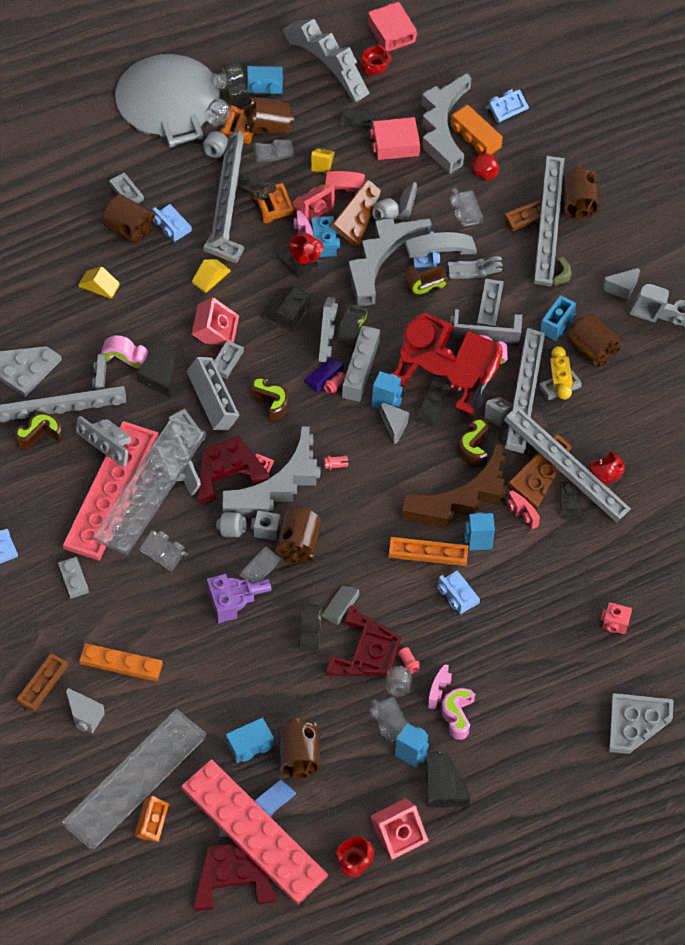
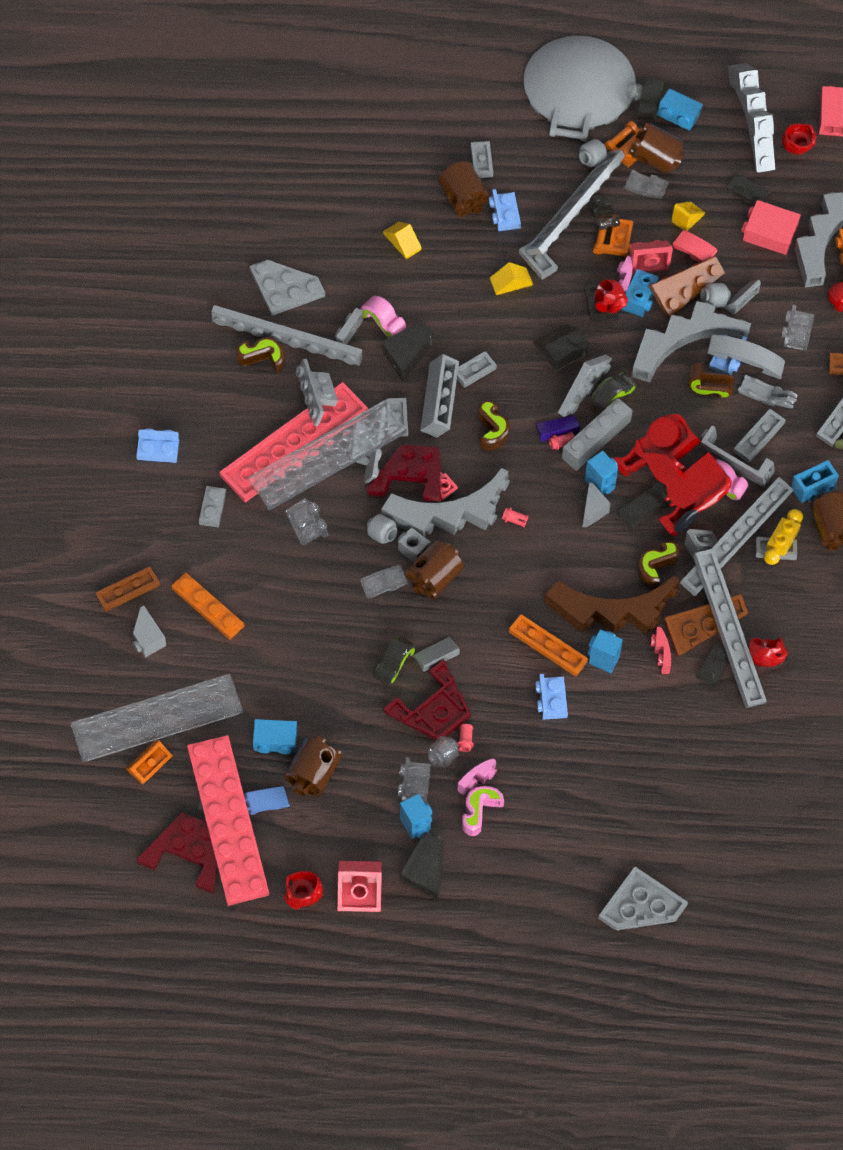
camera: 30 degrees right, 5 degrees up
(214, 323) = (484, 329): coral slope -> none
(217, 112) = (613, 121): clear head -> none
(232, 595) = (342, 595): medium lavender brick -> none
(616, 618) = (684, 798): coral brick -> none

